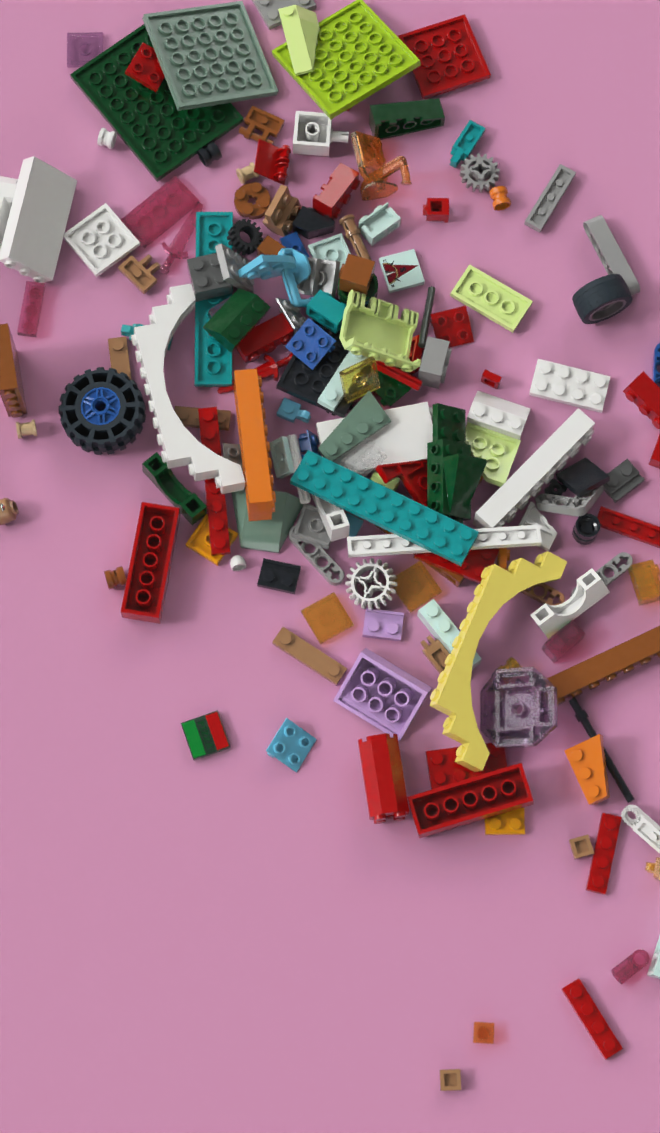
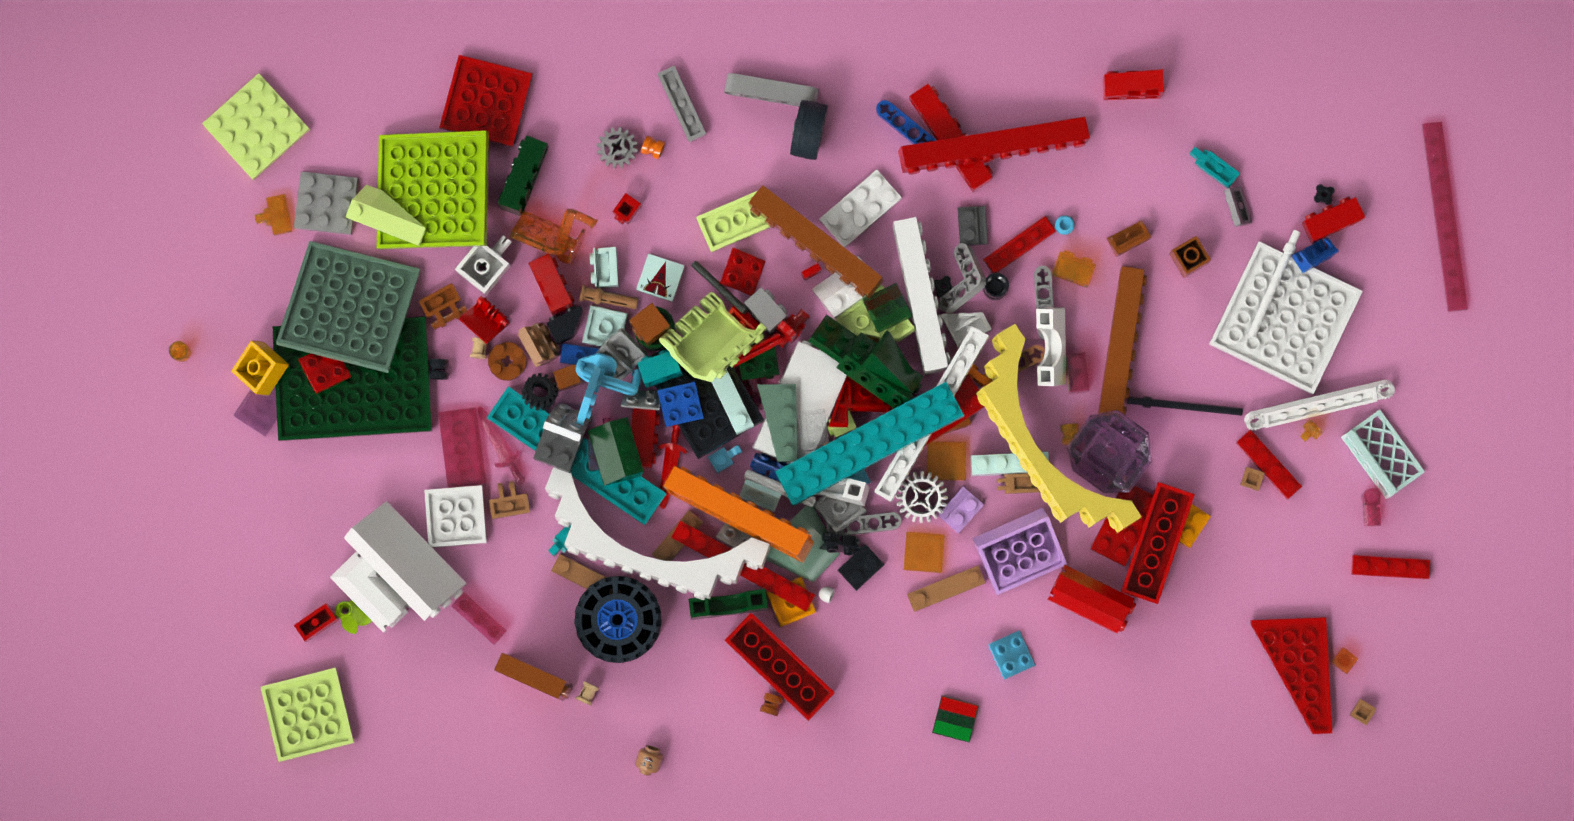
camera: 50 degrees left, 10 degrees up
(107, 138) = (362, 448): white wheel -> none
(116, 23) = (260, 367): none -> yellow brick
(289, 552) = (848, 545): none -> black hinge
(359, 379) = (744, 386): clear yellow tile -> none
(434, 392) = (792, 327): none -> red piece
(456, 996) = (1301, 659): none -> red wing
(466, 142) = (580, 139): teal hinge -> none
(505, 453) = (887, 307): none -> clear green tile
(516, 362) = (815, 241): none -> dark orange brick
(582, 477) = (950, 257): black tile -> none
(590, 768) = (1195, 427): orange wedge -> none

